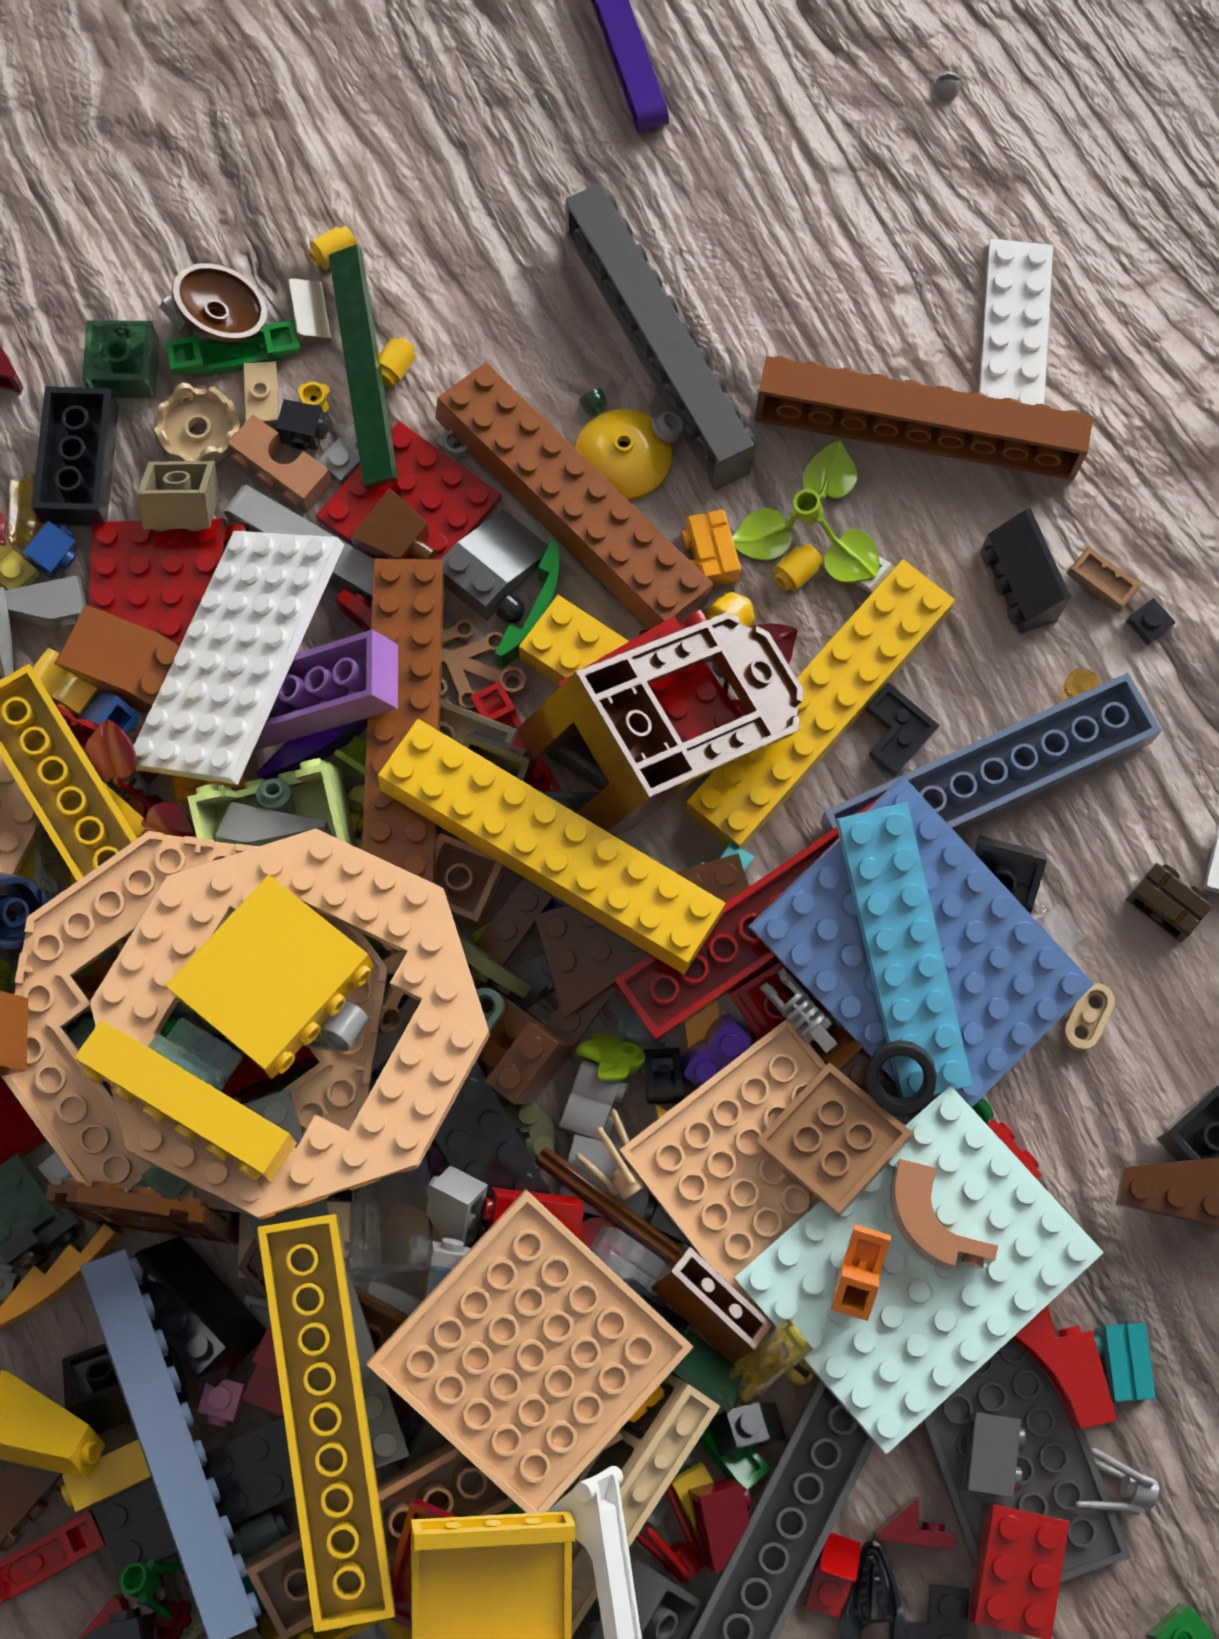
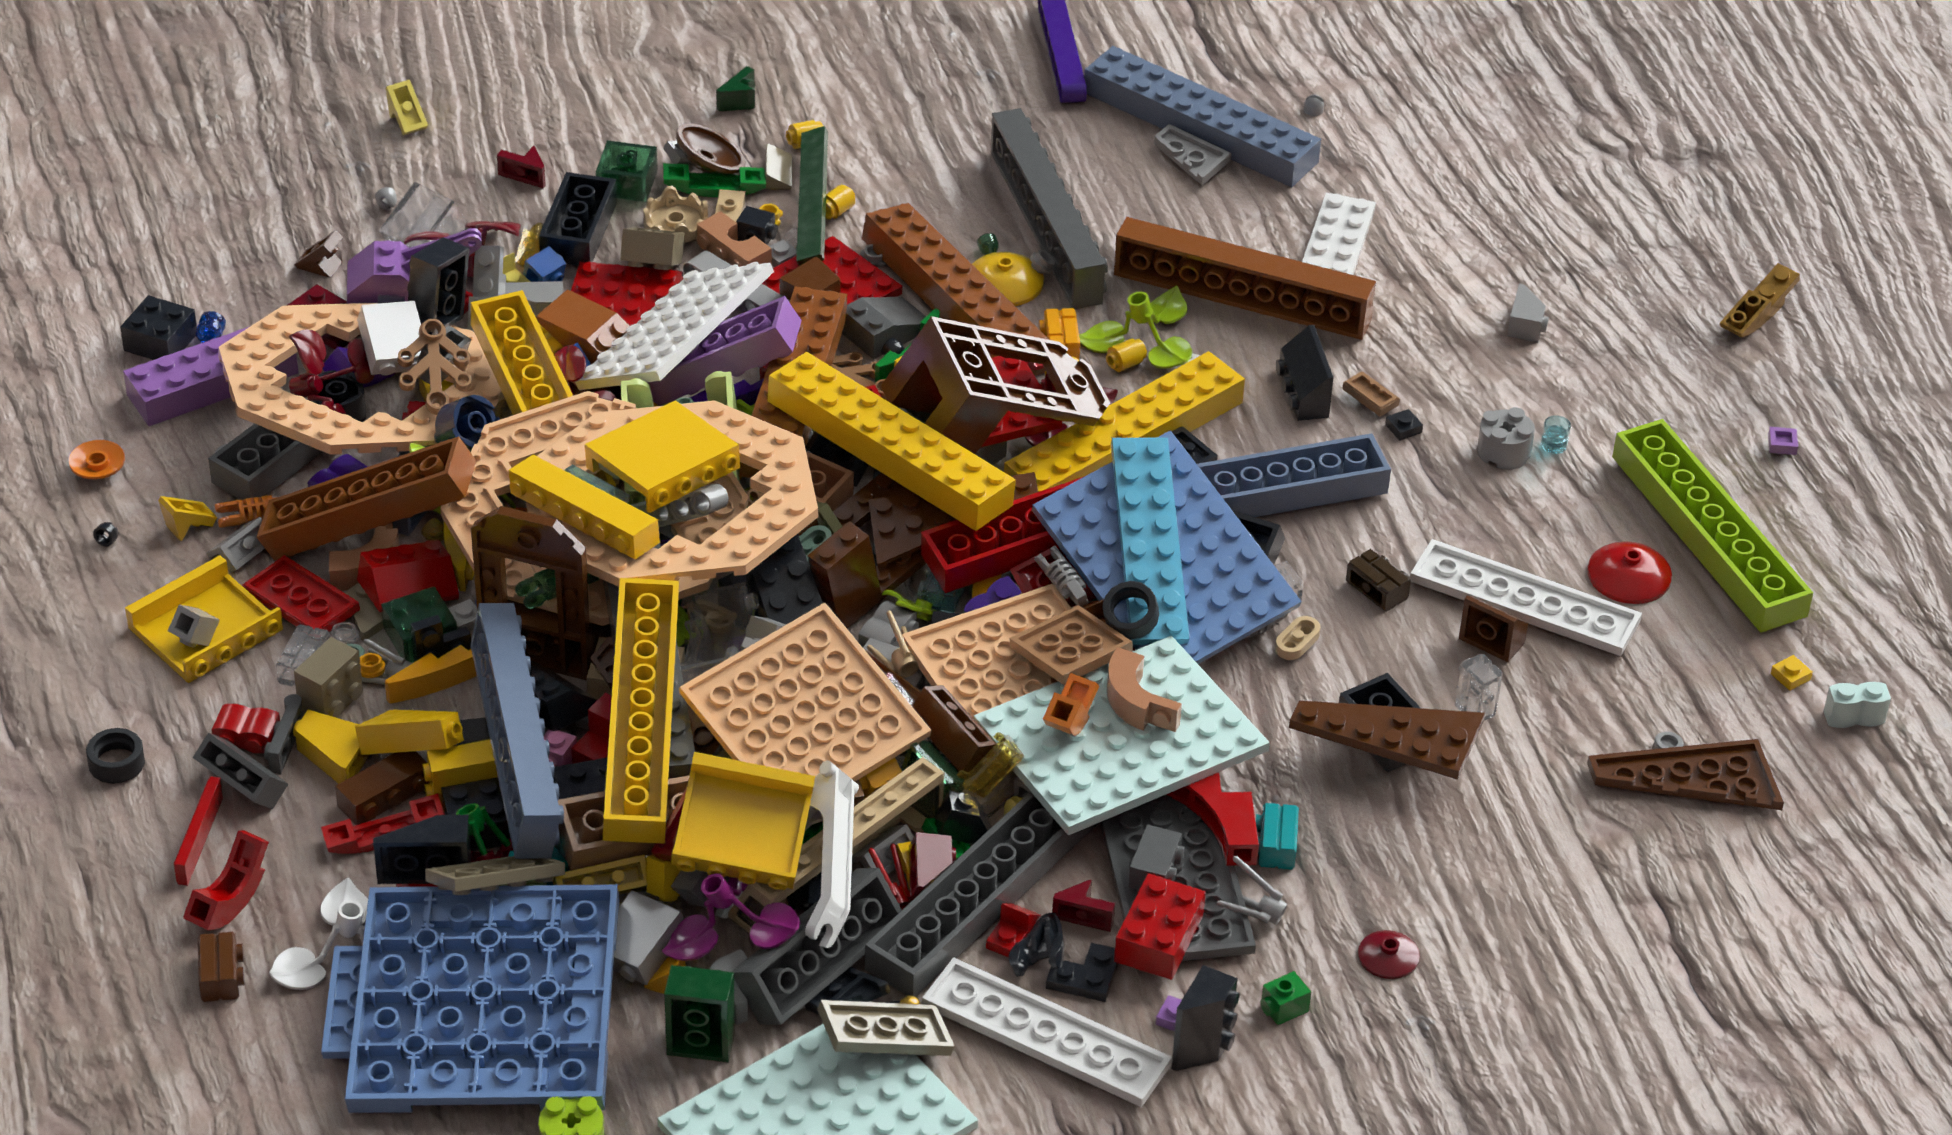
camera: 10 degrees right, 30 degrees down
(232, 190) = (737, 92): none -> dark green slope
(815, 198) = (1191, 153): none -> light grey wing
(817, 133) = (1169, 98): none -> sand blue brick

